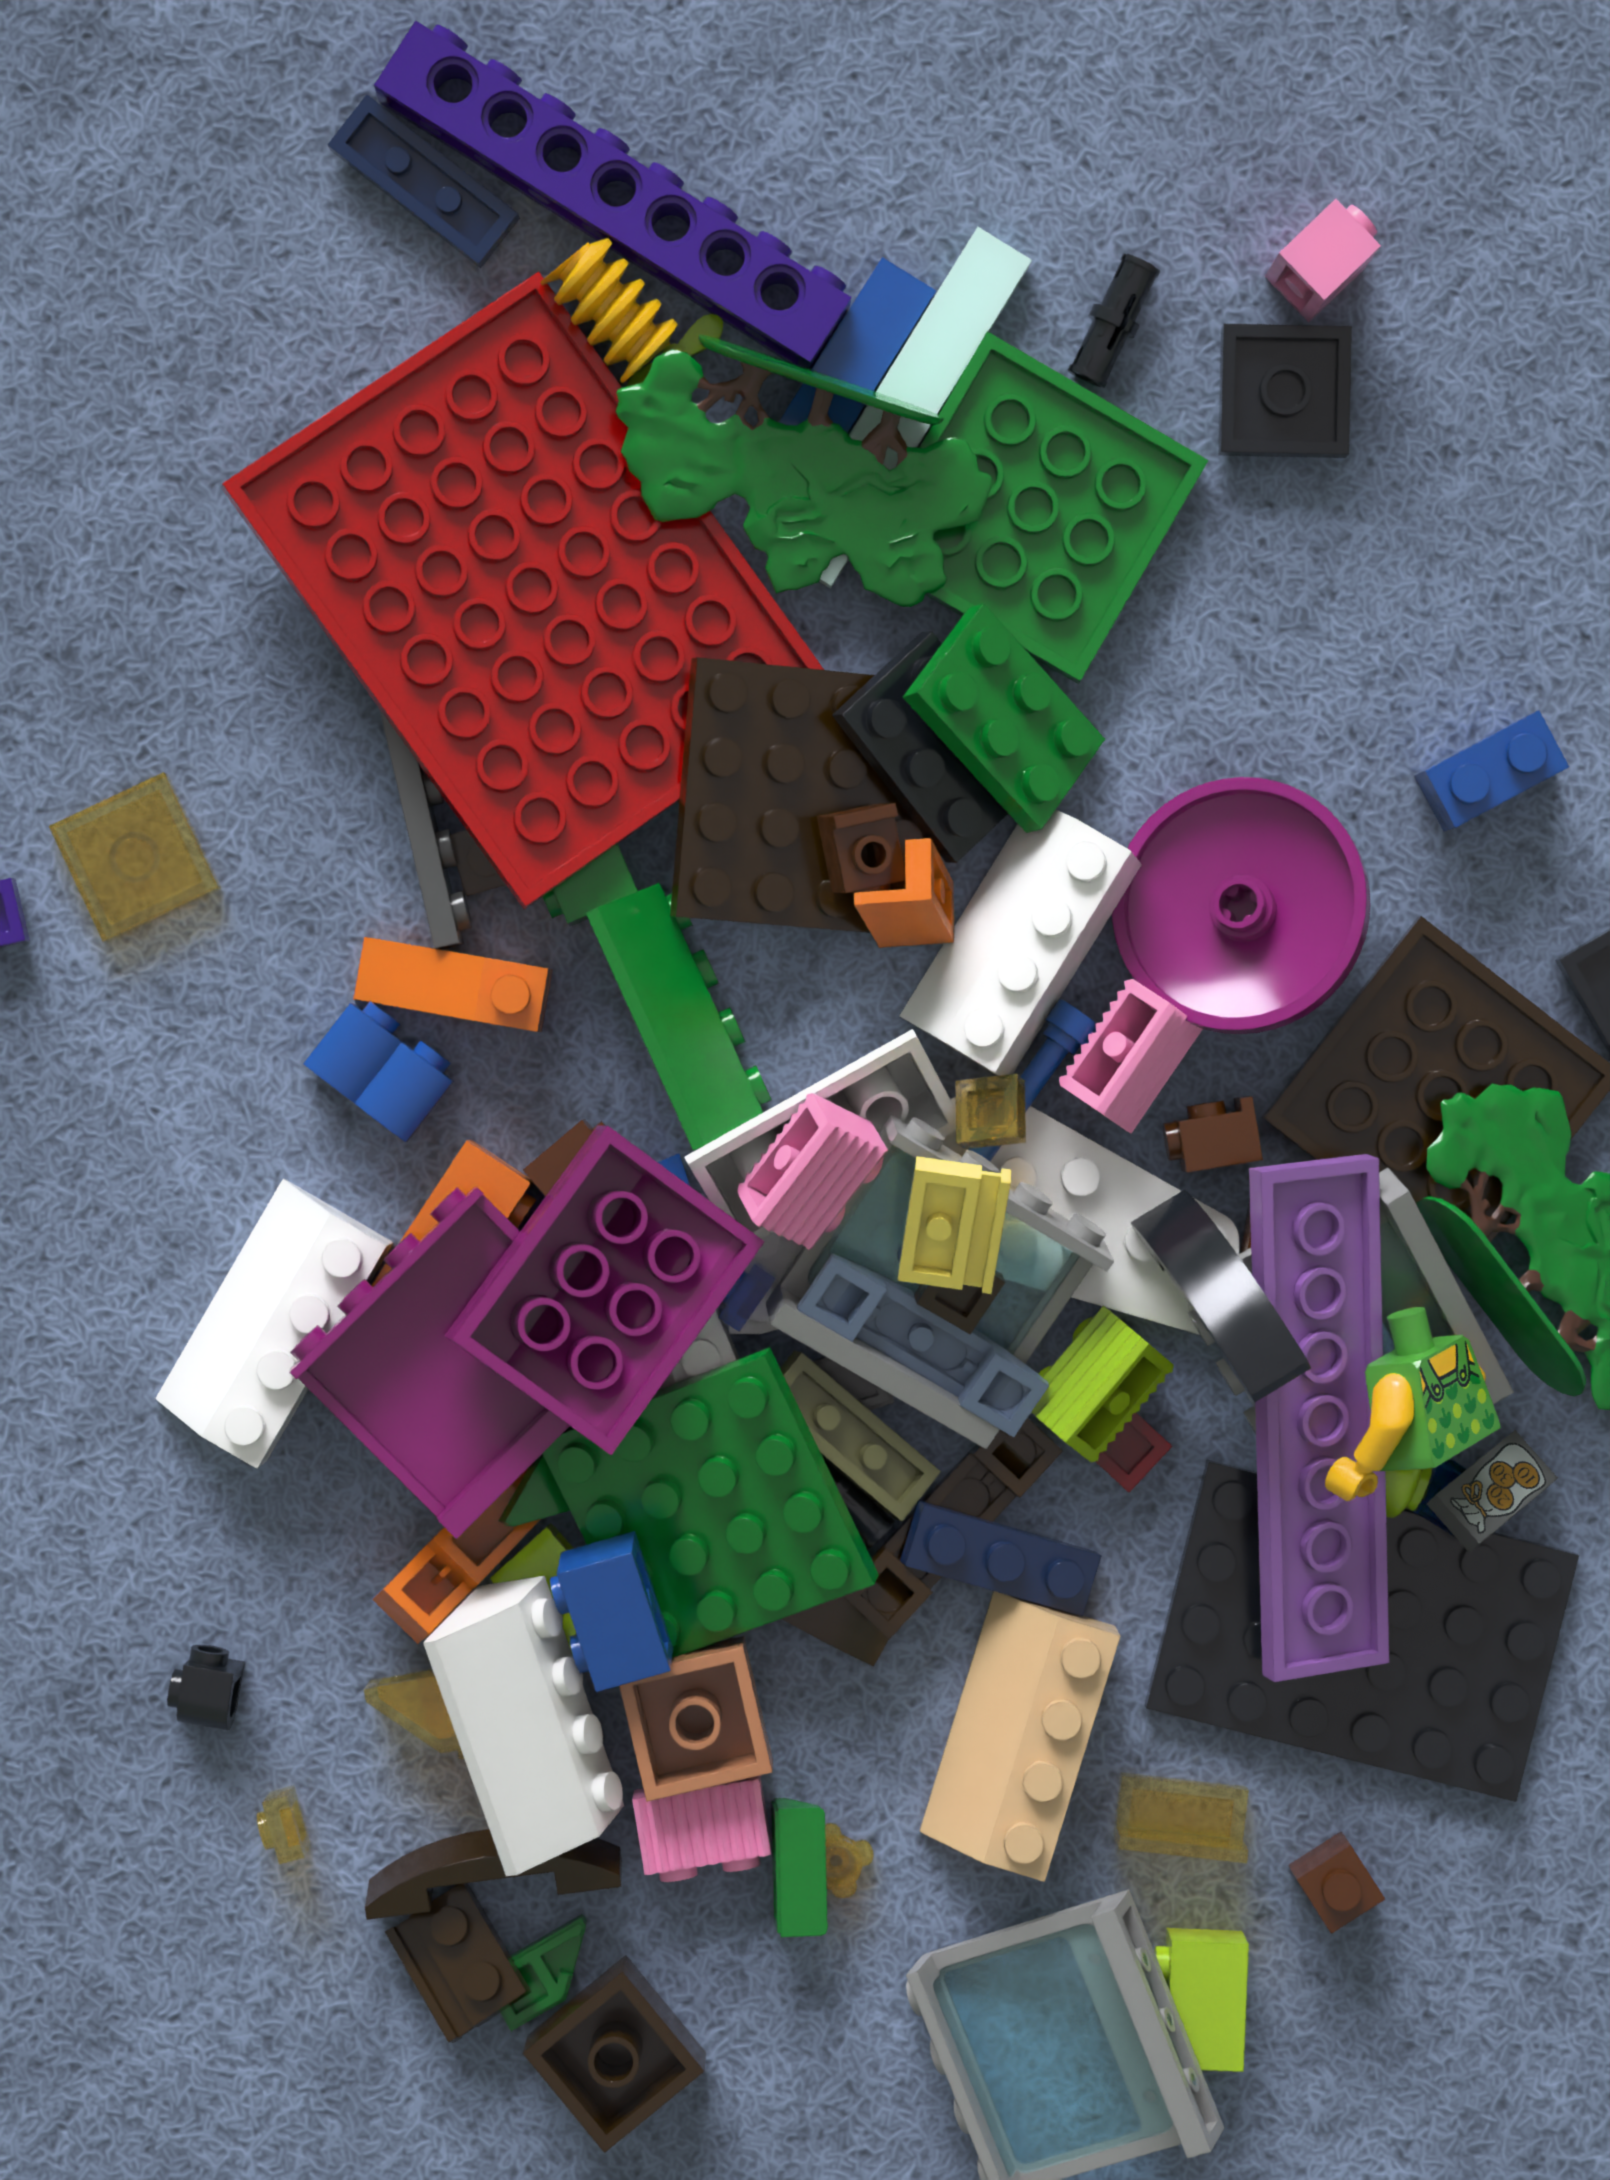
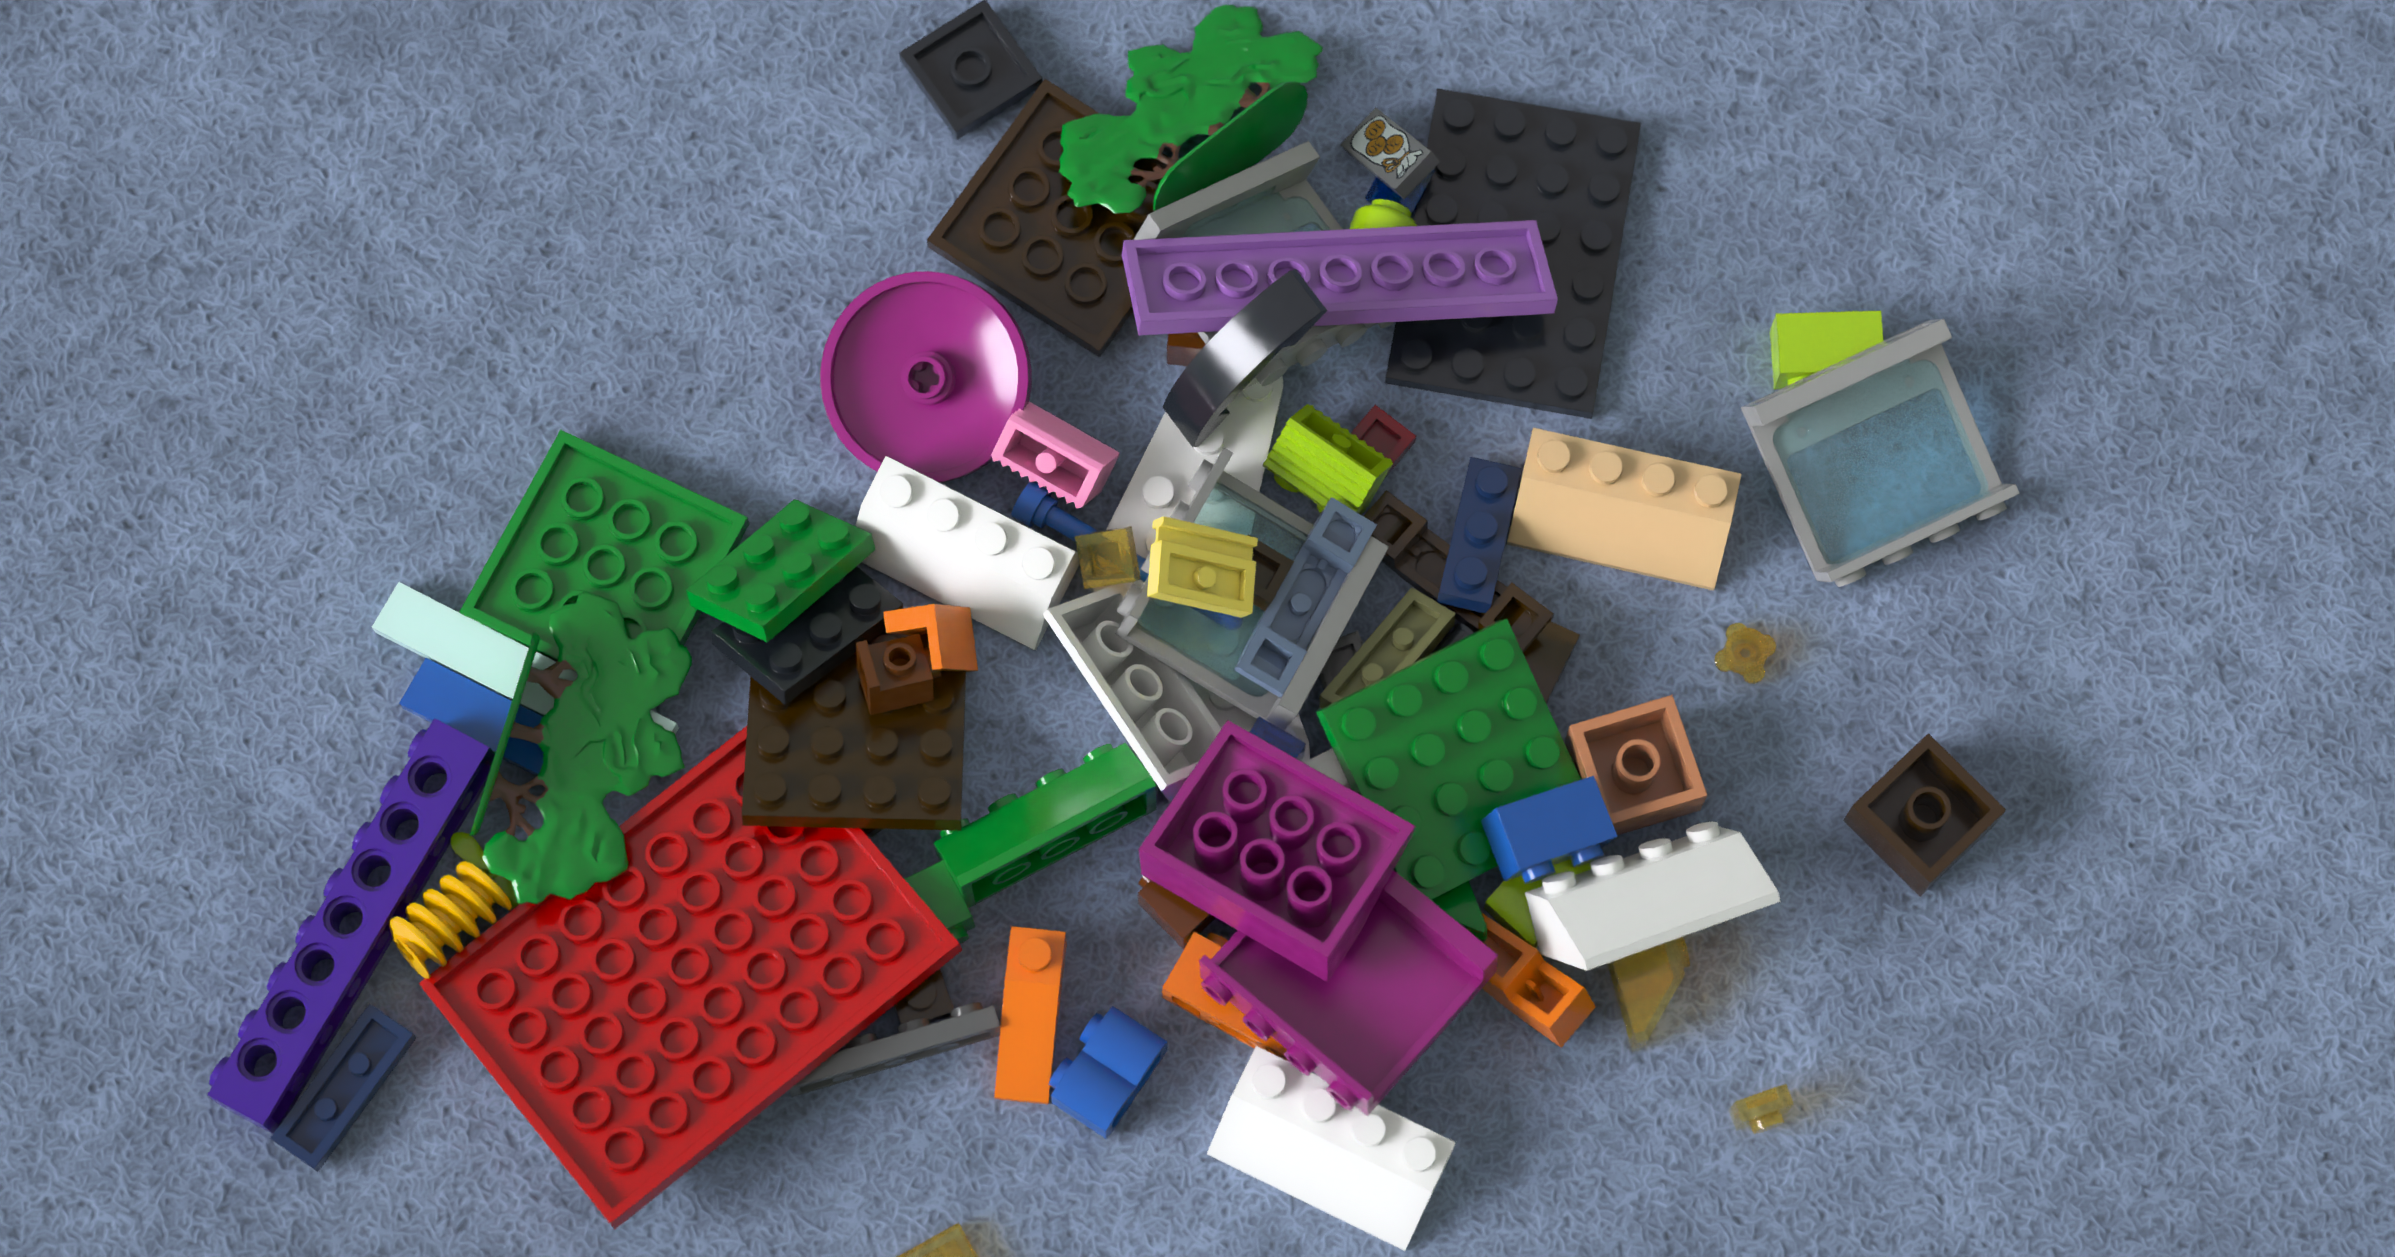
camera: 100 degrees left, 15 degrees down
(207, 1688) = (1651, 1184): black plate -> none
(458, 1962) = (1863, 955): dark brown plate -> none
(472, 1857) = (1797, 998): dark brown slope -> none
(548, 1971) = (1868, 893): green tile -> none
(703, 1829) = (1728, 760): bright pink brick -> none
(799, 1868) = (1753, 679): green slope -> none
(812, 1171) = (1166, 687): bright pink brick -> none
(1114, 320) = (447, 514): black pin -> none
(1181, 1817) = (1679, 380): clear yellow panel -> none
(1214, 1136) = (1117, 387): reddish brown brick -> none
(1285, 390) = (501, 376): black plate -> none
(1324, 258) = (393, 345): bright pink brick -> none
(1336, 1882) = (1719, 253): reddish brown brick -> none
(1423, 1404) = (1323, 196): torso -> none
(1491, 771) = (806, 193): blue brick -> none

